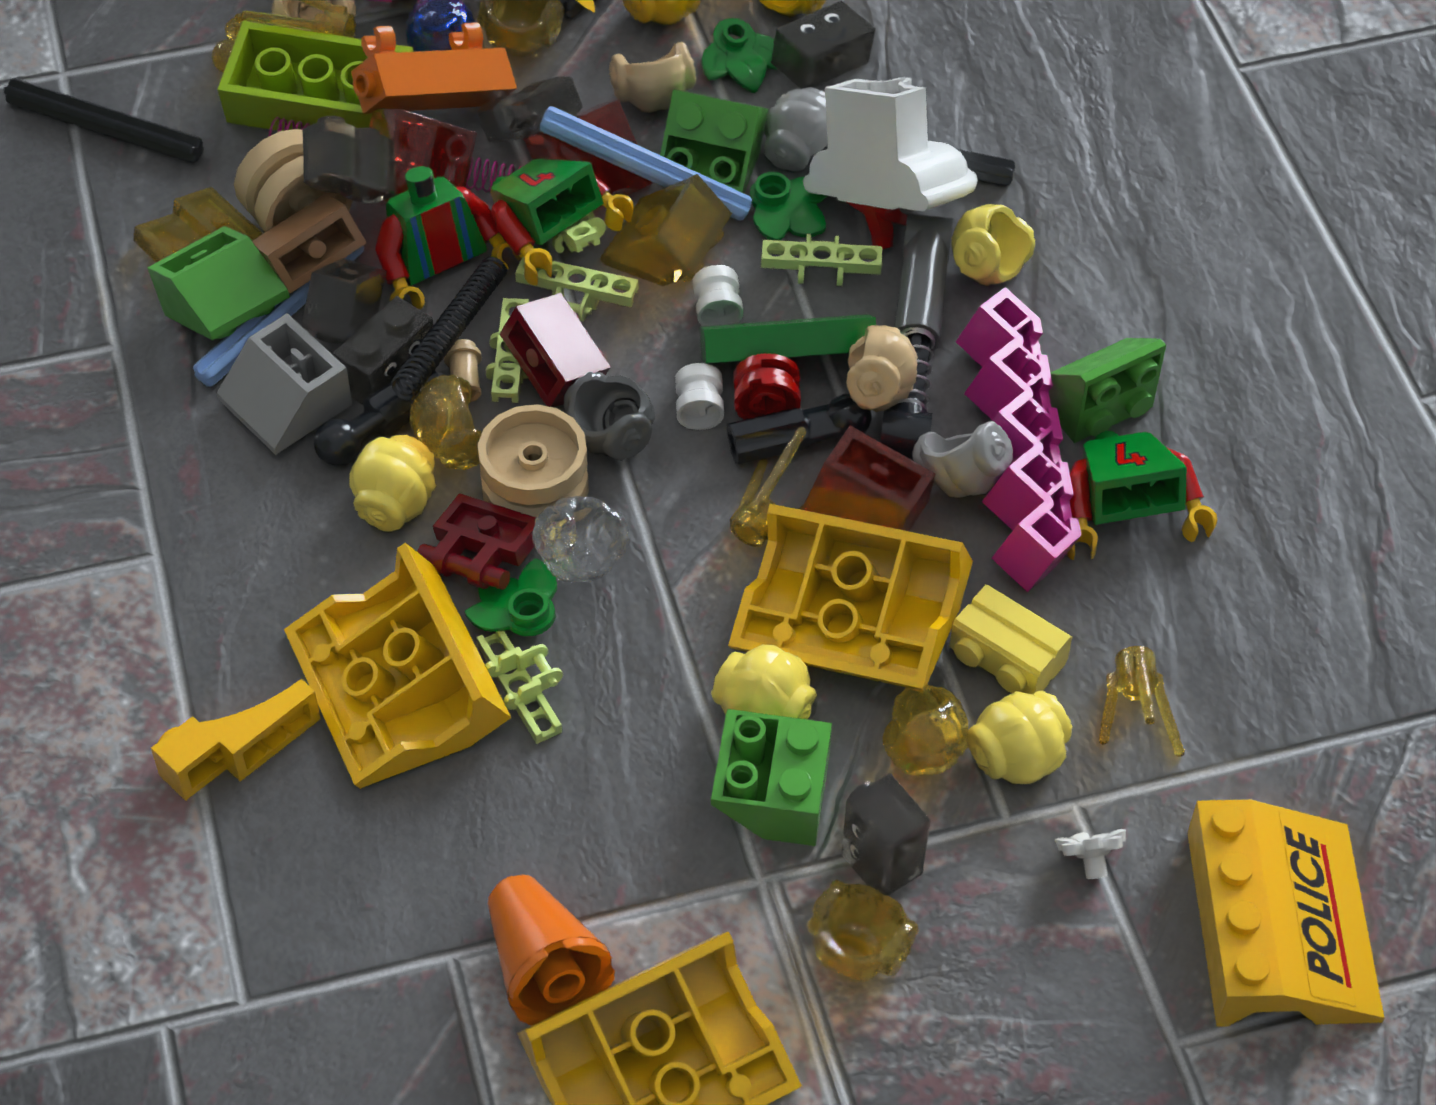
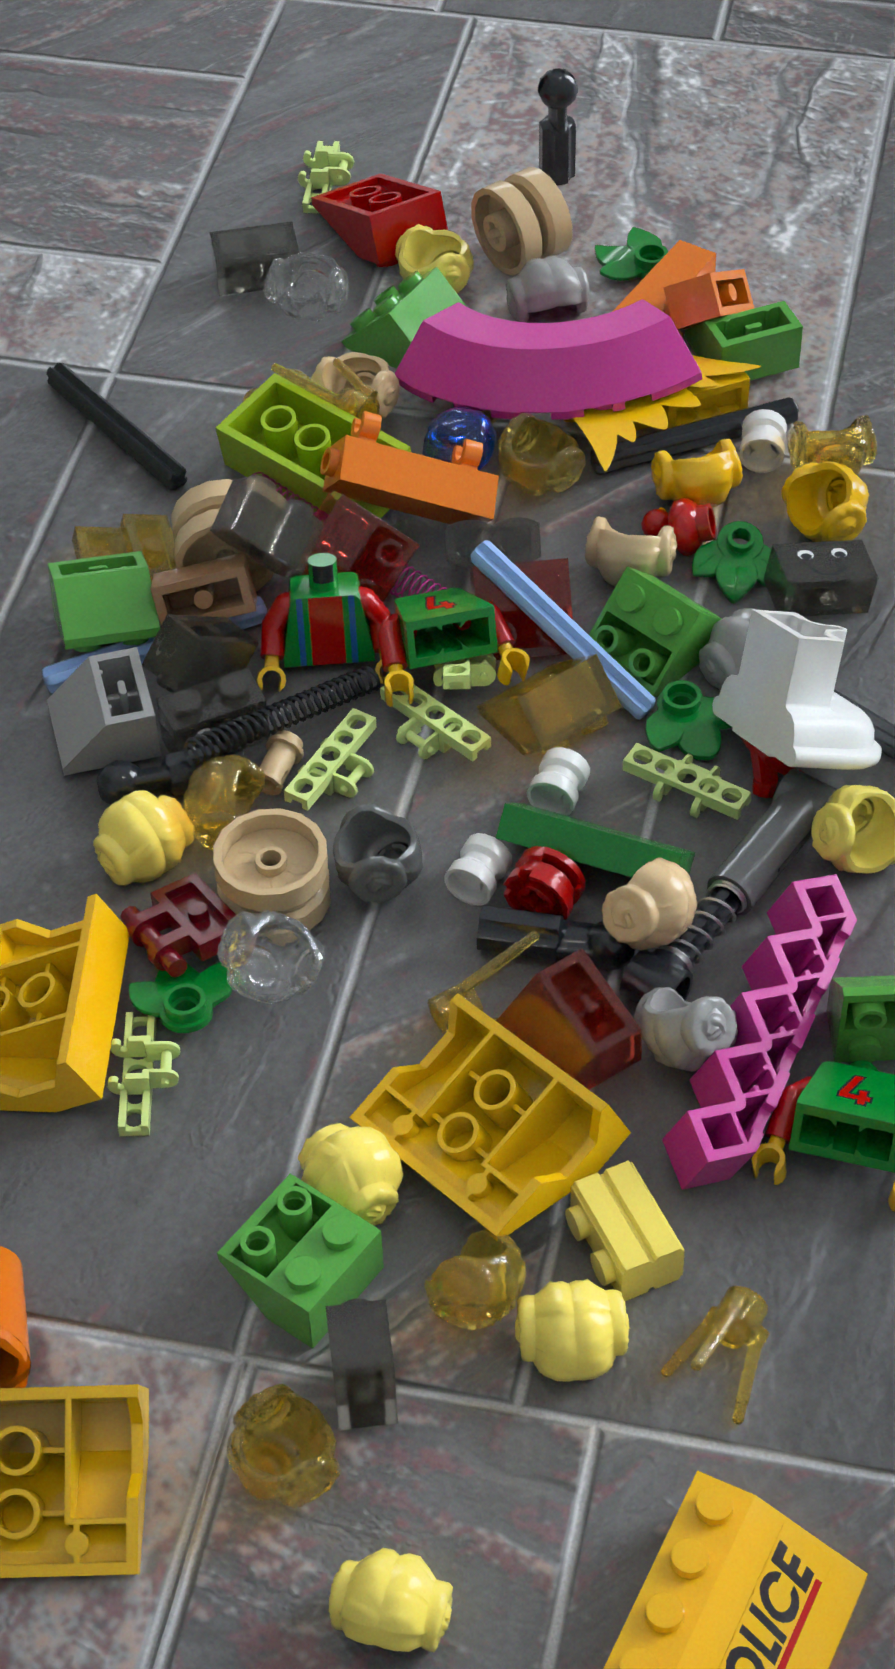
camera: 30 degrees right, 5 degrees down
(551, 346) = (363, 765): brick -> none
(676, 29) = (690, 522): none -> red animal
(1021, 1011) = (390, 1602): none -> light yellow hair
(1092, 850) = (572, 1475): white plant -> none

